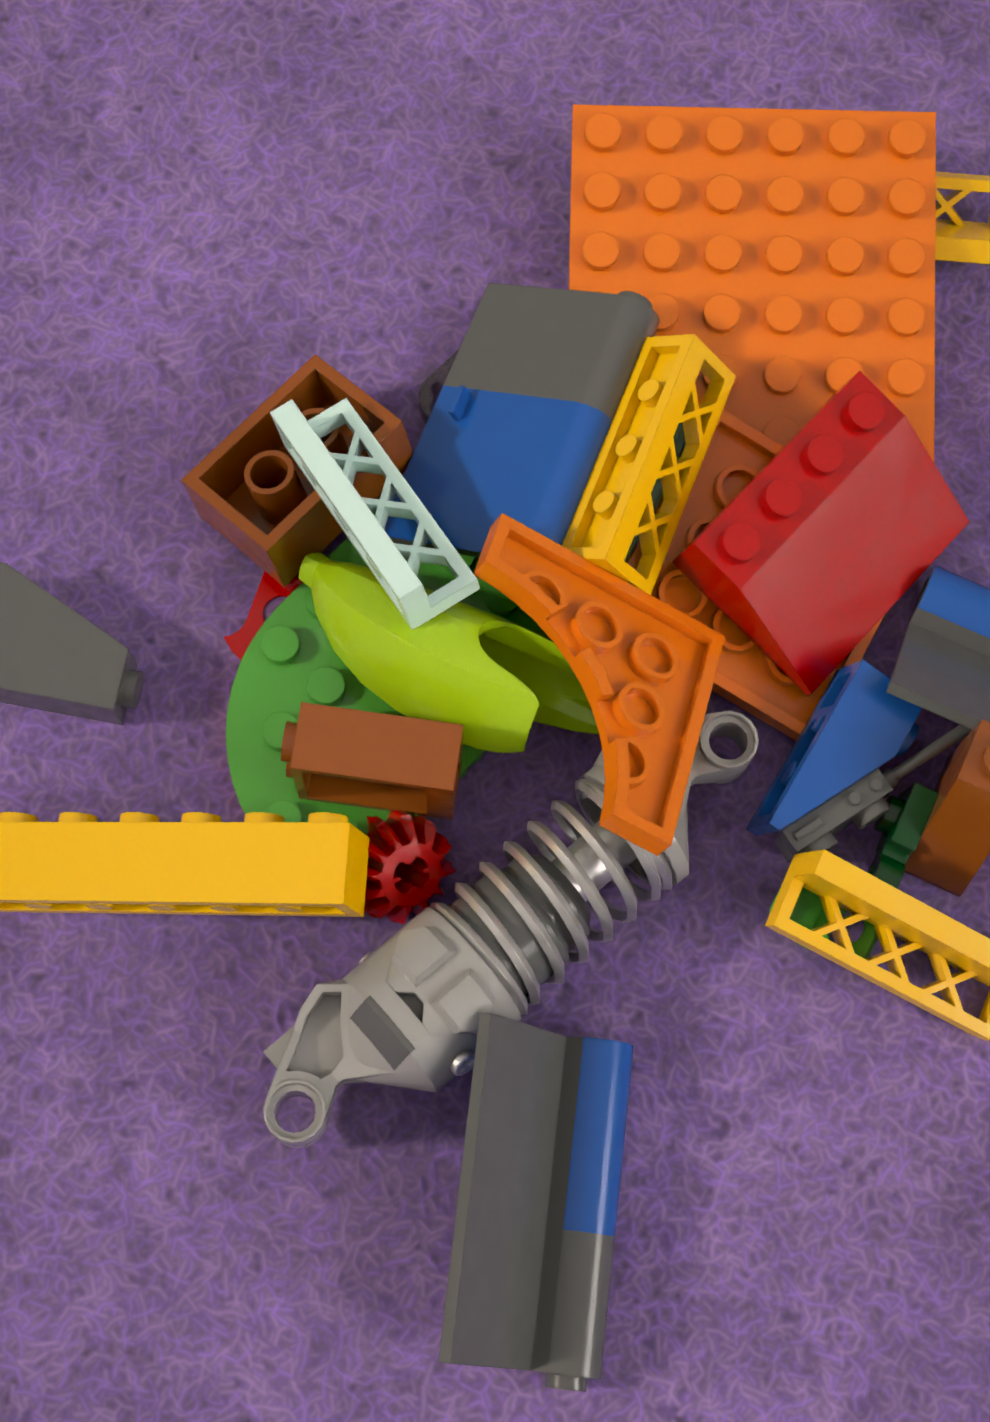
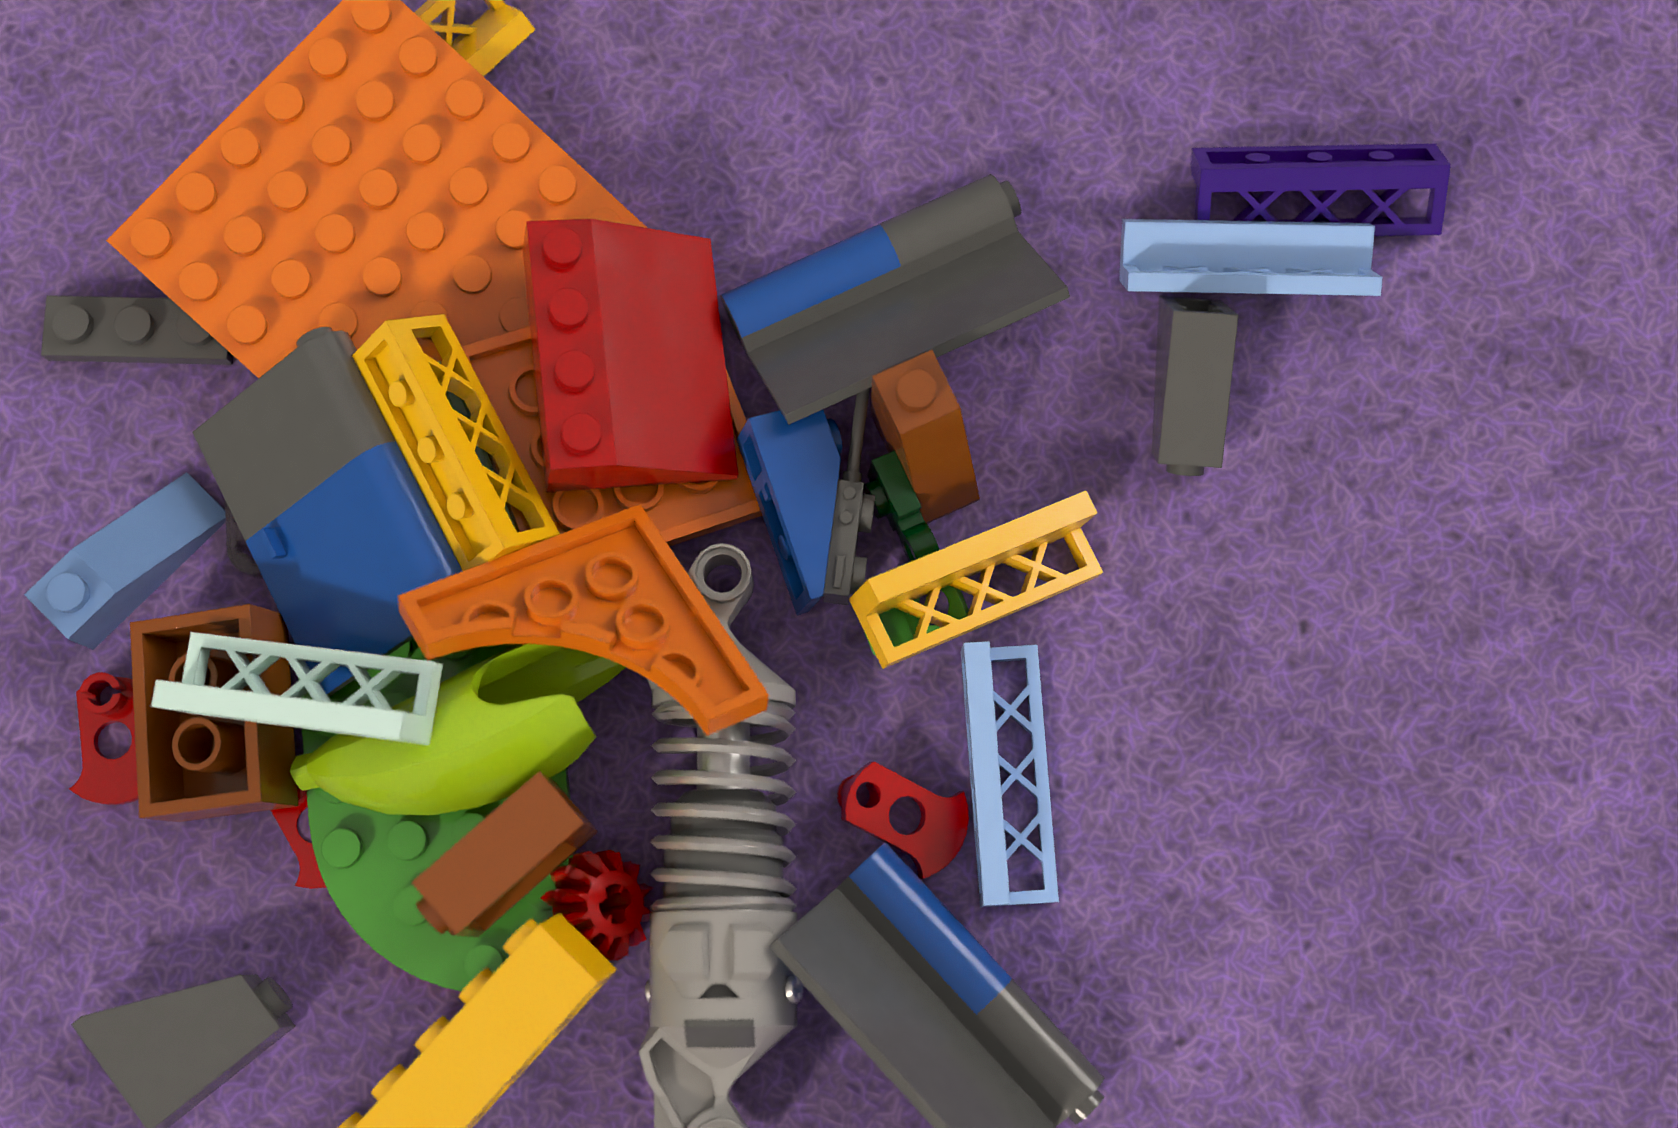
camera: 45 degrees left, 5 degrees up
(185, 437) = (103, 778): none -> red piece
(355, 319) = (126, 561): none -> medium blue slope
(518, 181) = (126, 332): none -> dark grey plate
(689, 1077) = (941, 823): none -> red piece
(751, 1081) = (985, 774): none -> light blue fence

